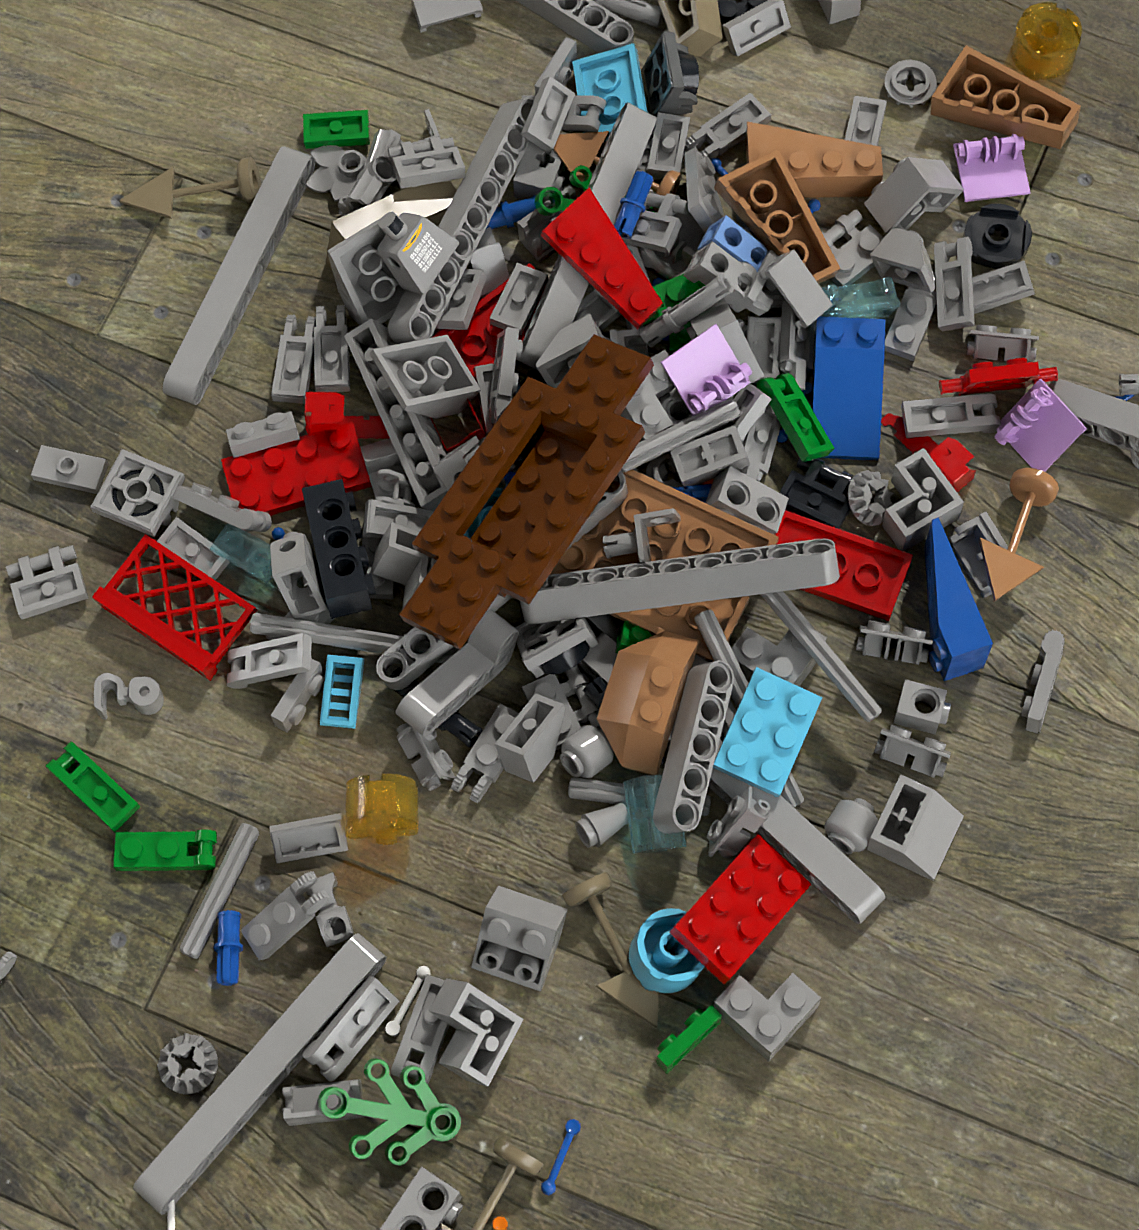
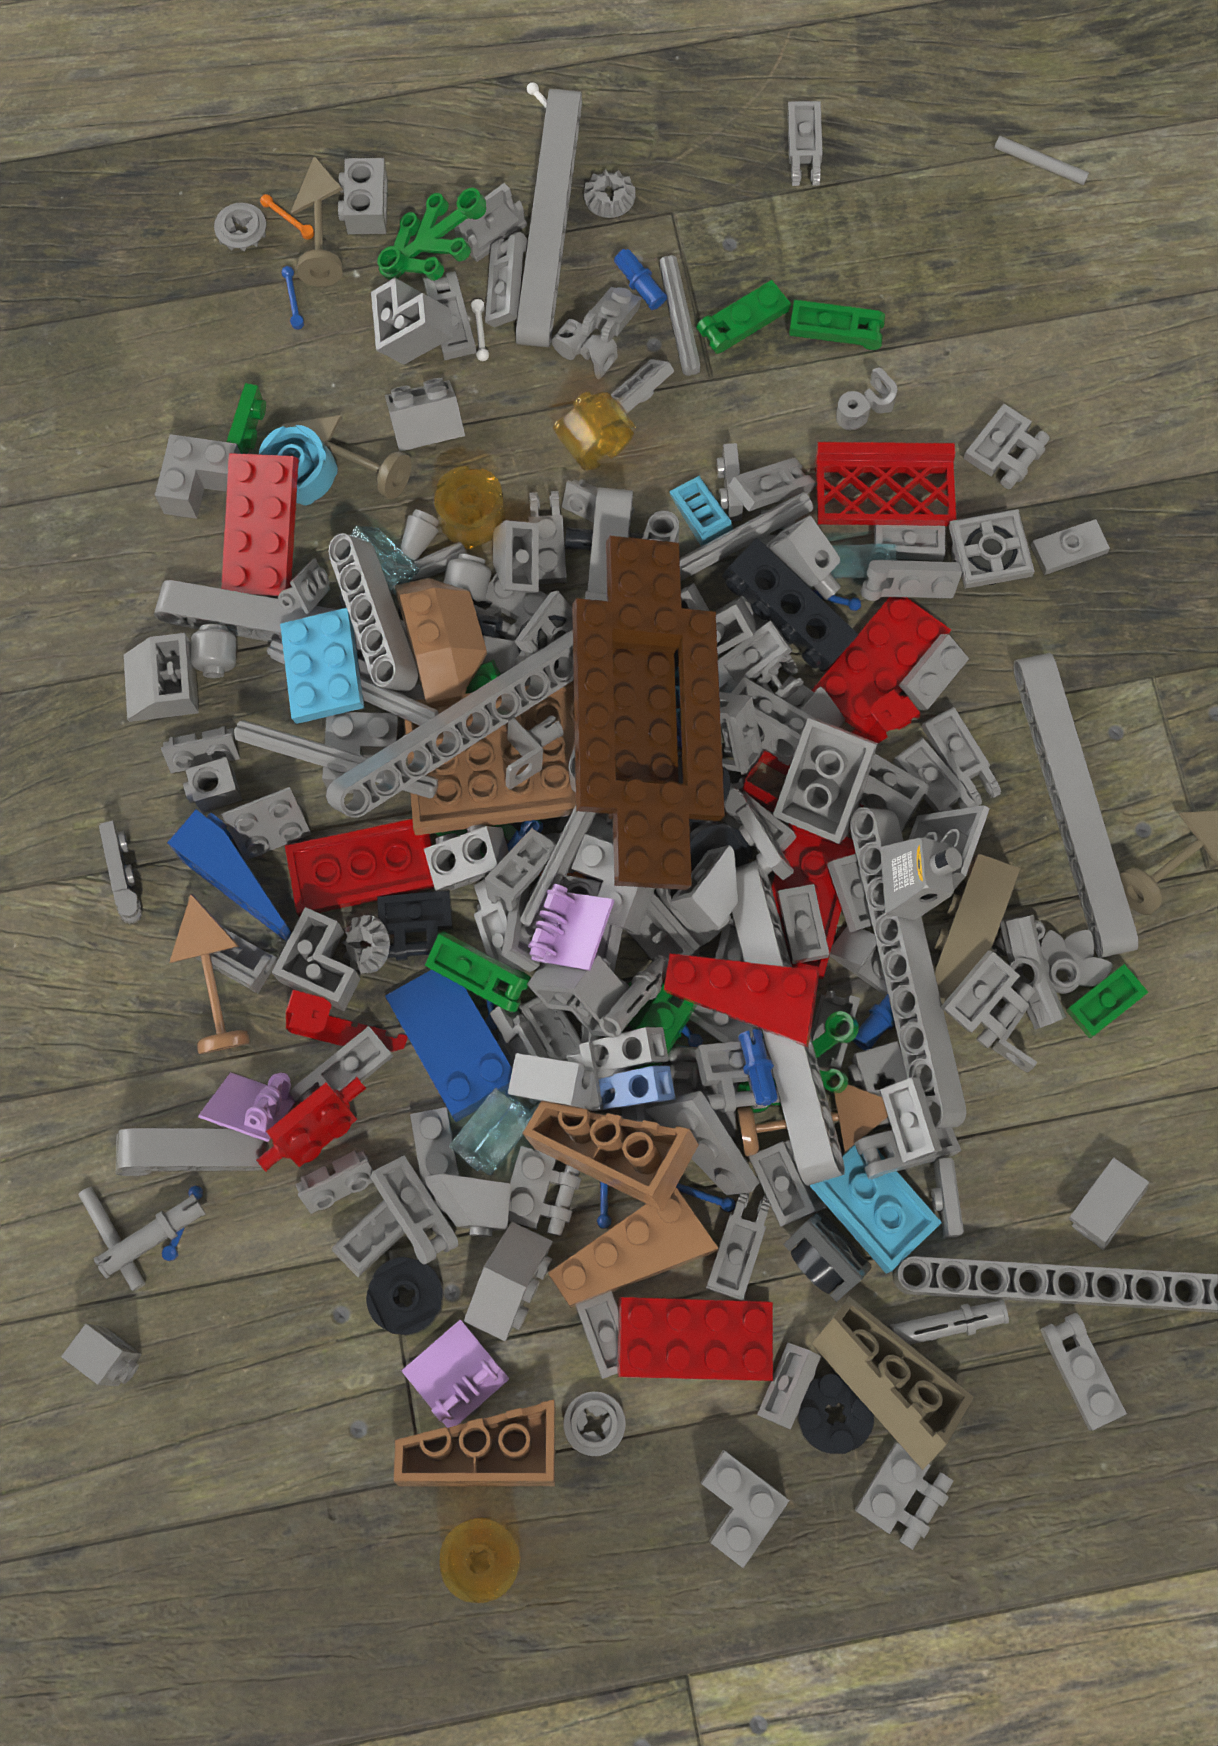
camera: 145 degrees right, 5 degrees up
(520, 808) = (469, 505): none -> clear yellow brick
(803, 89) = (695, 1339): none -> red plate

